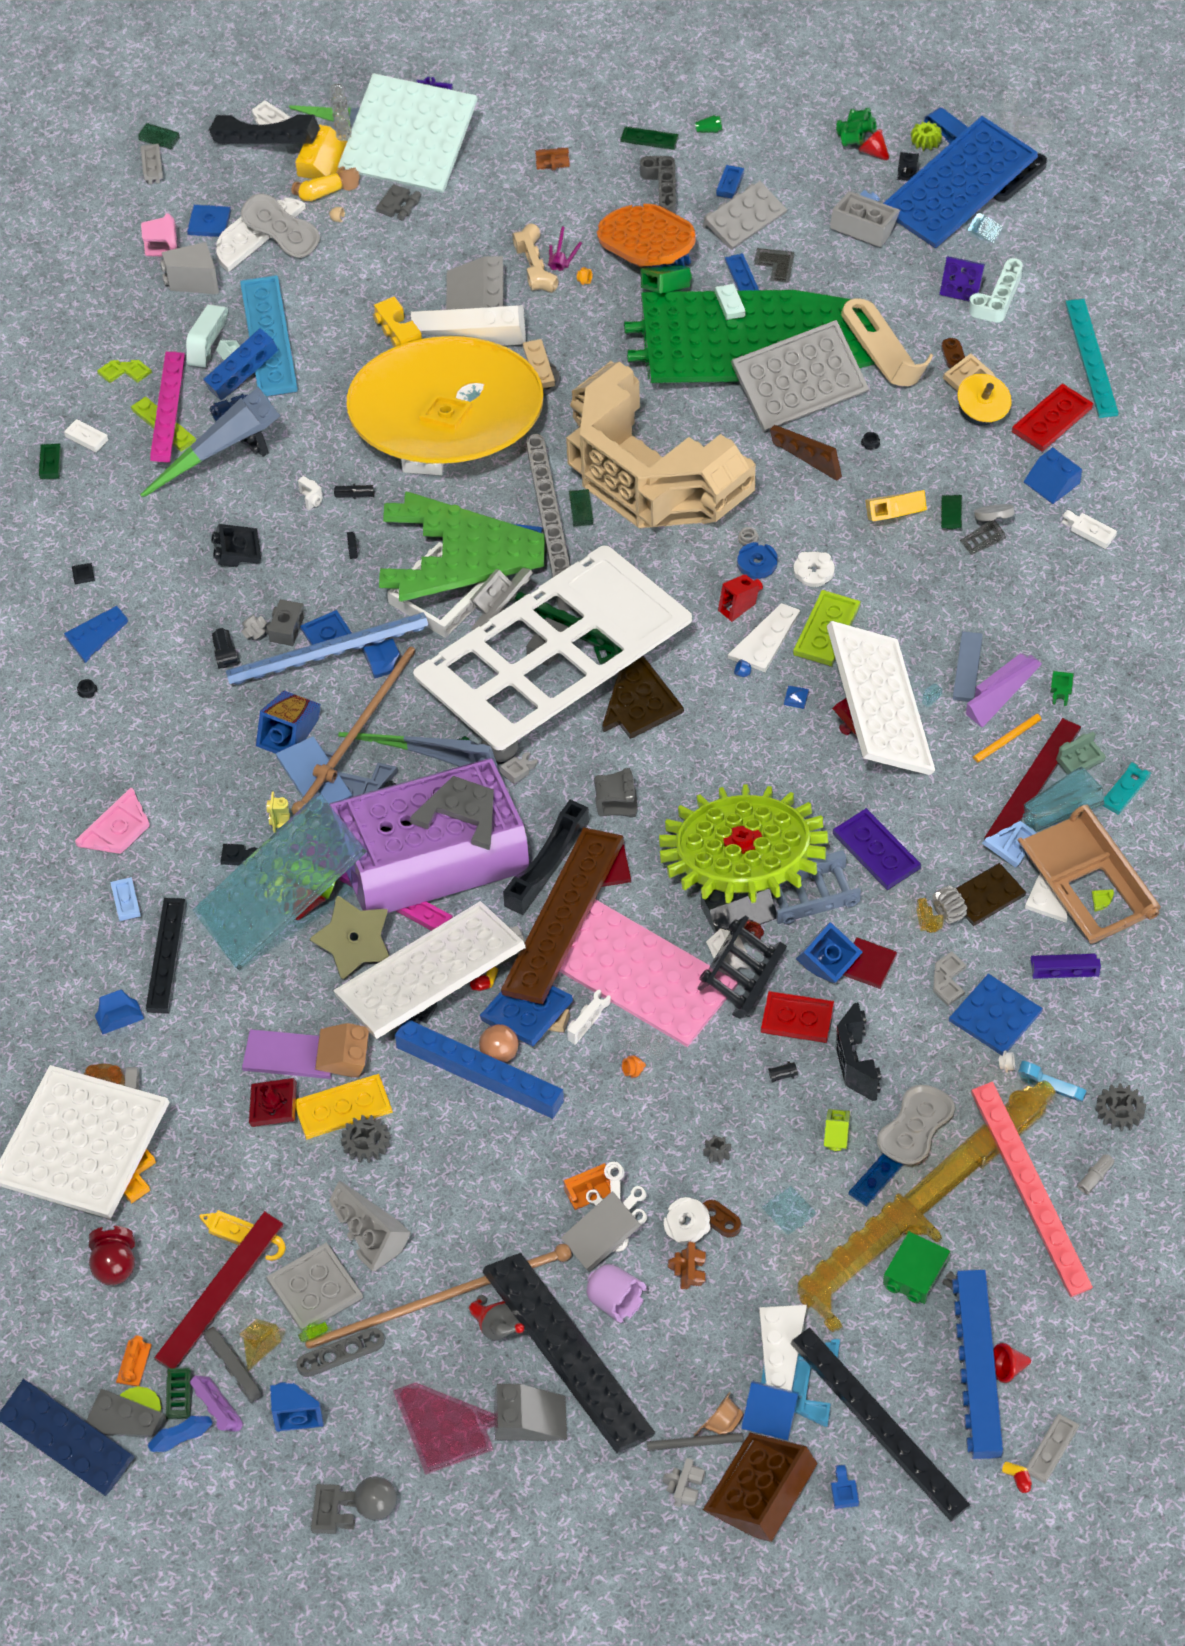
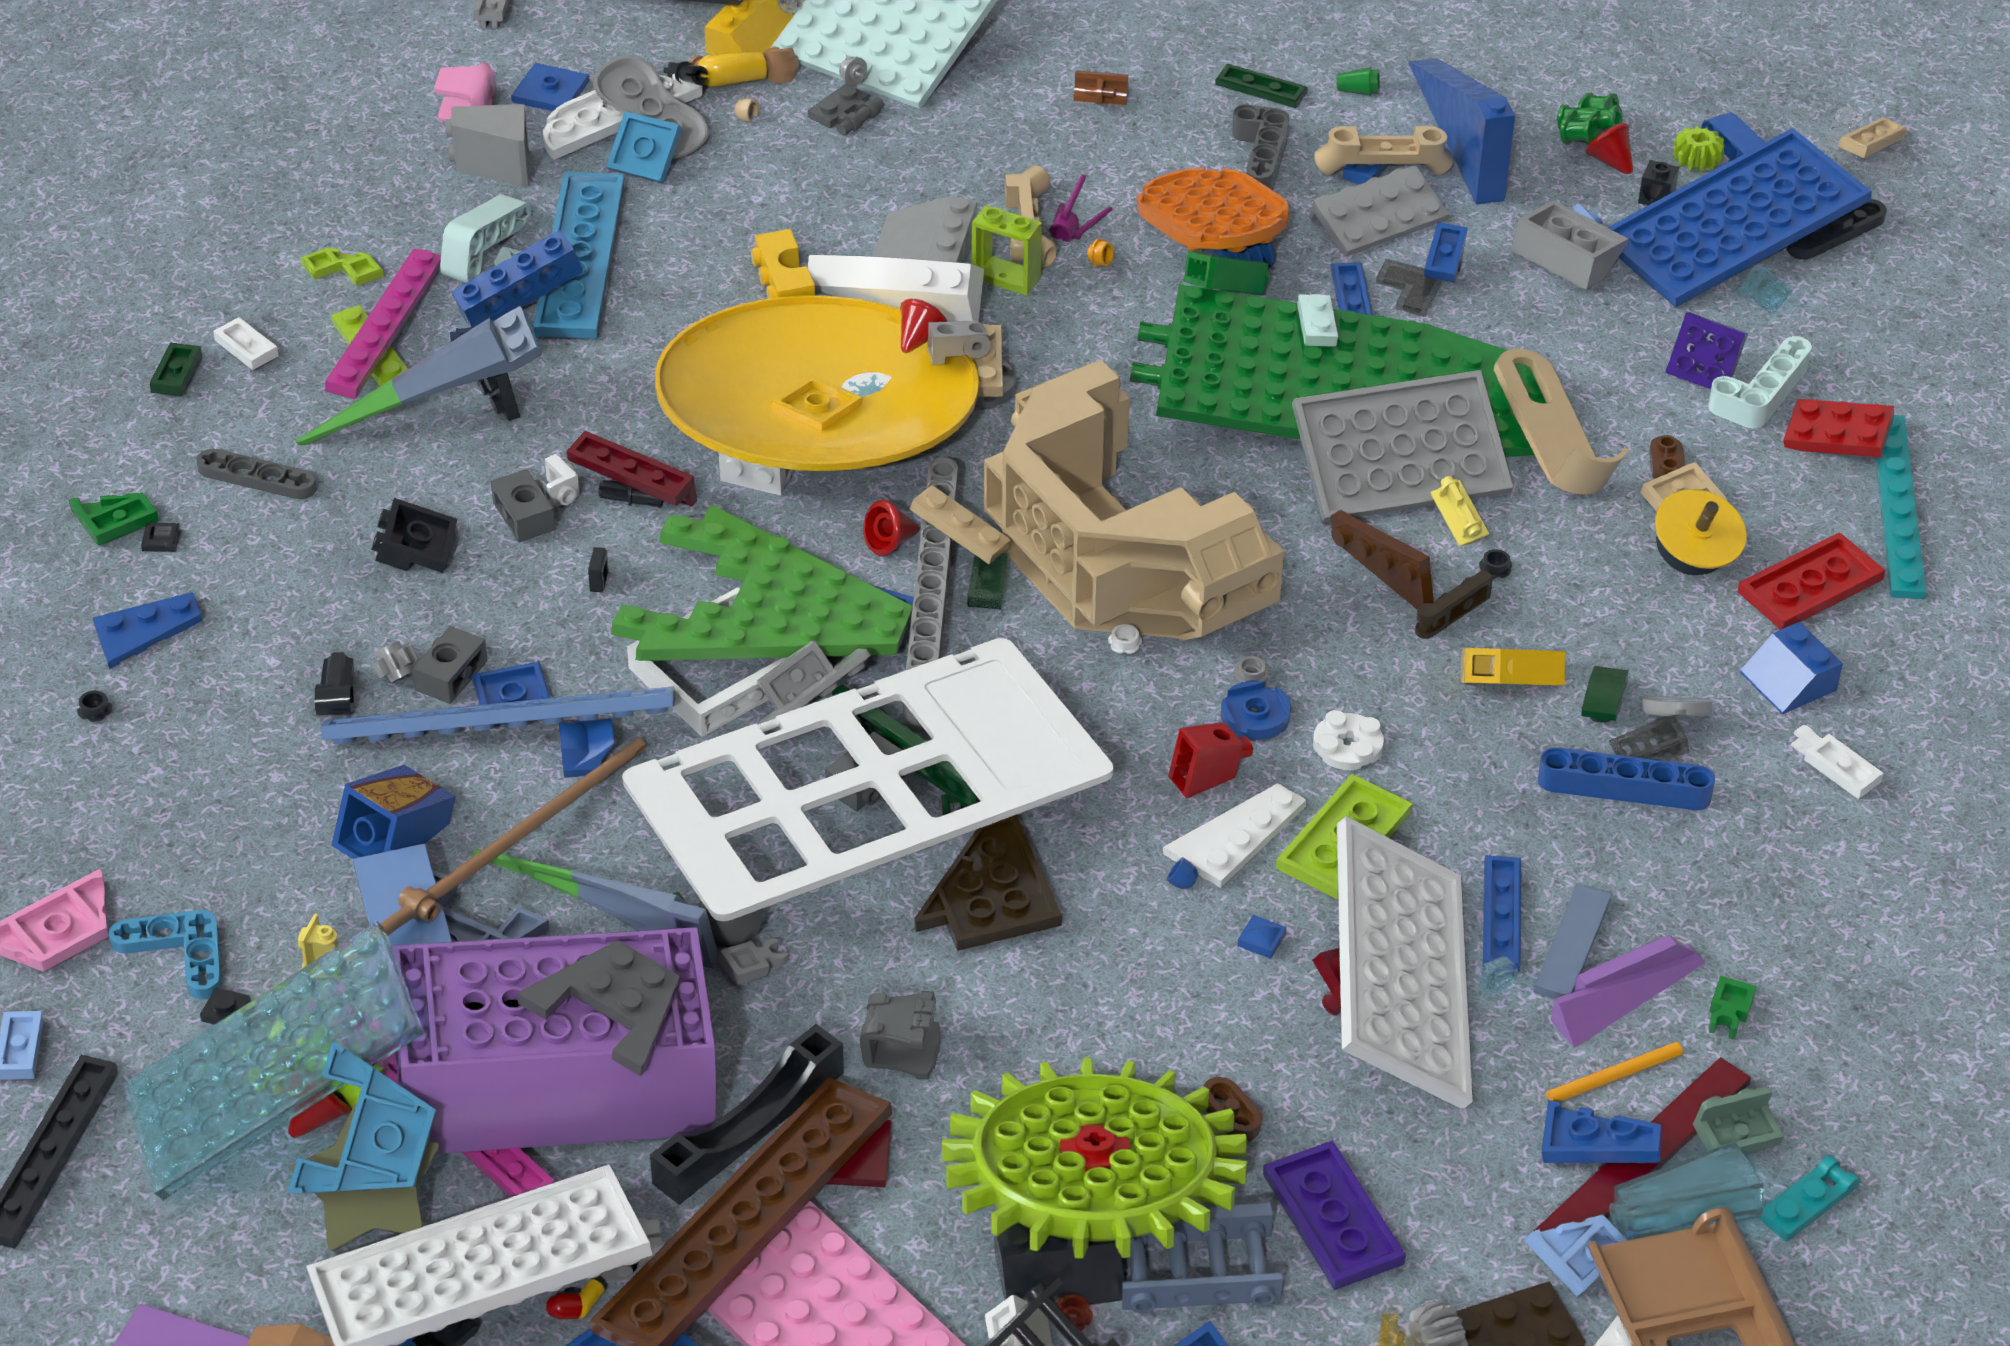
camera: 10 degrees right, 10 degrees down
(50, 565) = (114, 515): none -> green wing
(124, 524) = (259, 470): none -> dark grey beam
(192, 816) = (184, 934): none -> dark azure beam
(284, 254) = (644, 147): none -> dark azure plate
(292, 195) = (686, 72): none -> black axle
(293, 512) = (524, 505): none -> dark grey brick
(351, 477) = (633, 469): none -> dark red fence
(359, 911) = (384, 1135): none -> dark azure wing
(397, 175) = (853, 70): none -> light grey plate
(495, 350) = (914, 323): none -> red hat
(511, 480) = (887, 528): none -> red hat
(521, 356) = (956, 339): none -> light grey leg
(531, 273) = (1017, 277): none -> lime window
(557, 476) = (960, 524): none -> tan plate
(670, 526) = (1125, 639): none -> white plate
(716, 176) = (1346, 147): none -> tan plate
(787, 143) = (1476, 126): none -> blue slope
(793, 238) = (1446, 252): none -> blue slope
(808, 796) = (1244, 1110): none -> reddish brown plate
(842, 411) = (1459, 511): none -> light yellow hinge
(852, 472) = (1453, 605): none -> dark brown plate
(924, 655) = (1502, 909): none -> blue tile
(975, 562) = (1626, 778): none -> blue beam
(1002, 779) = (1594, 1139): none -> blue wing
(1028, 108) = (1872, 137): none -> tan tile
(1048, 313) = (1839, 427): none -> red plate

